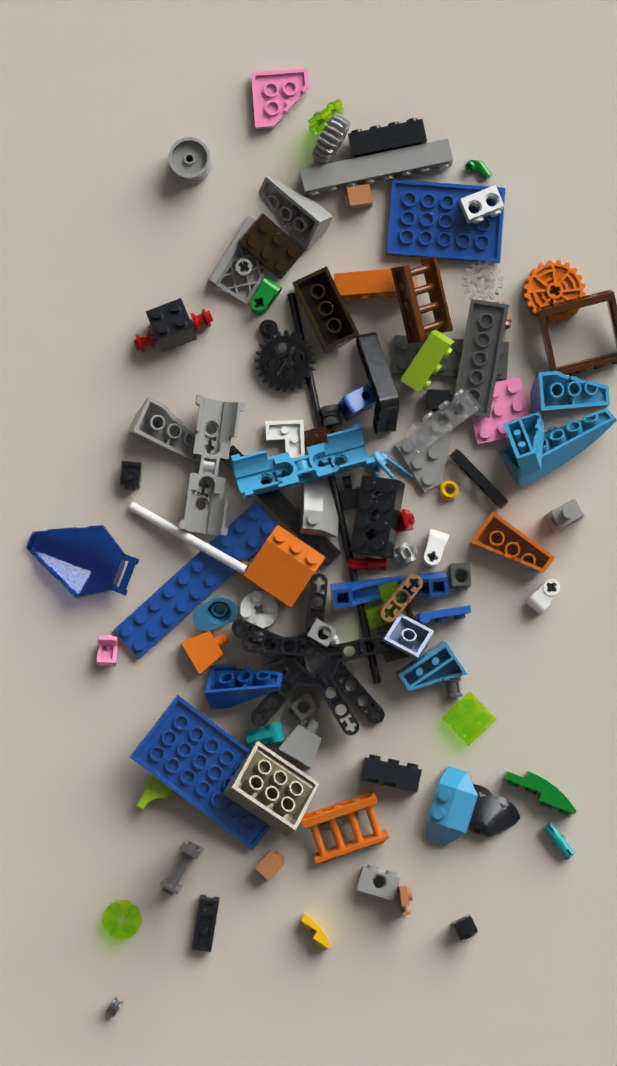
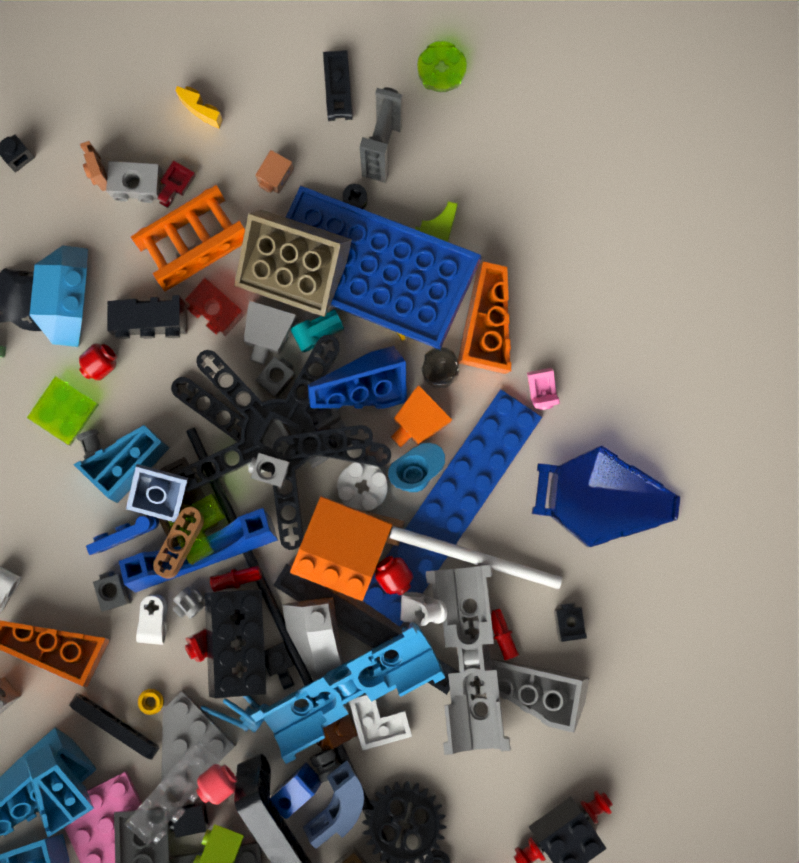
camera: 165 degrees right, 0 degrees up
(136, 710) = (487, 323): none -> orange wedge
(180, 683) = (440, 367): none -> clear smoke hair
(181, 477) = (503, 635): none -> red axle
(212, 828) = (357, 201): none -> black wheel
(236, 508) = (422, 609): none -> white piece
(250, 538) = (394, 575): none -> red head
(326, 381) = (343, 809): none -> sand blue arch
(343, 781) = (208, 294): none -> clear red brick
(346, 876) = (175, 180): none -> dark red plate
(410, 419) = (216, 784): none -> coral head
(435, 749) = (97, 361): none -> red head

